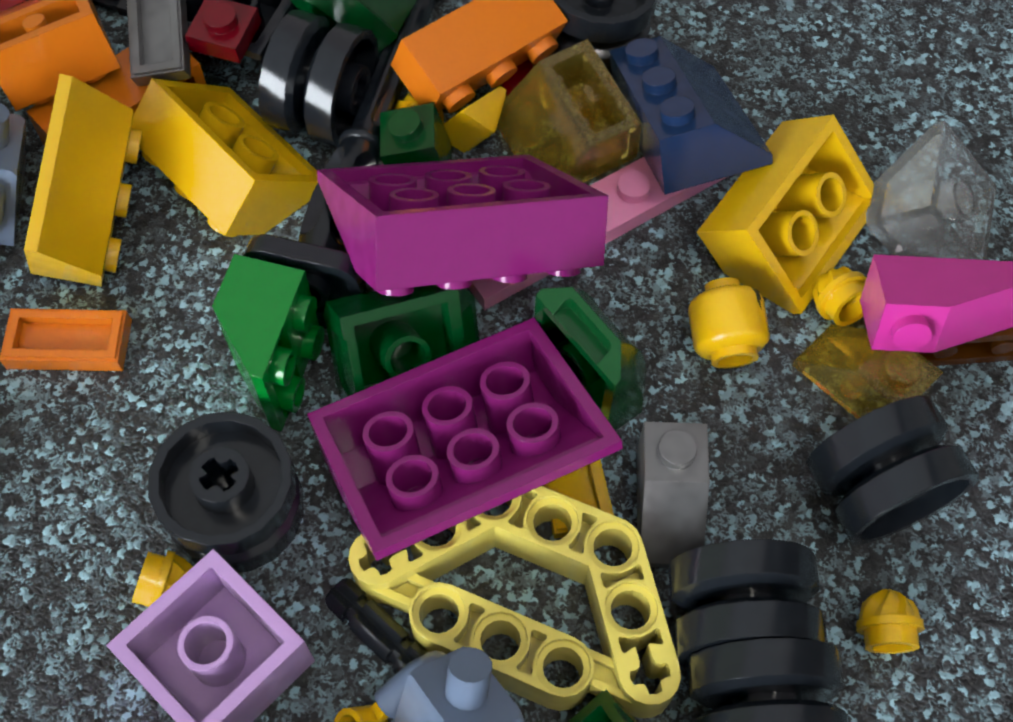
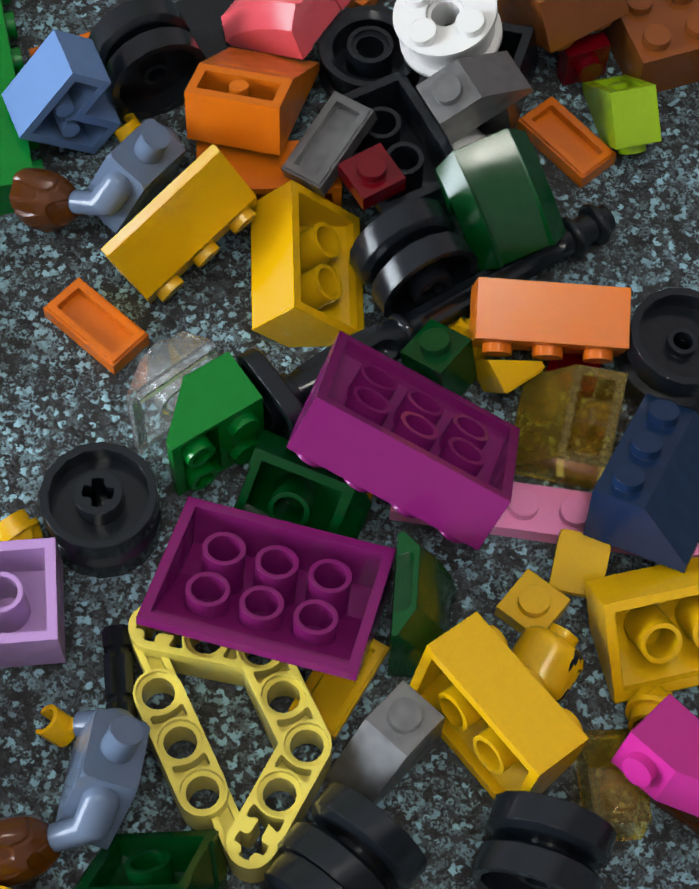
camera: 40 degrees right, 0 degrees up
(188, 332) = (158, 384): none -> clear slope
(666, 287) = (531, 603): none -> yellow plate
(671, 226) = (577, 560): none -> yellow slope
(755, 387) = (496, 710): none -> yellow slope

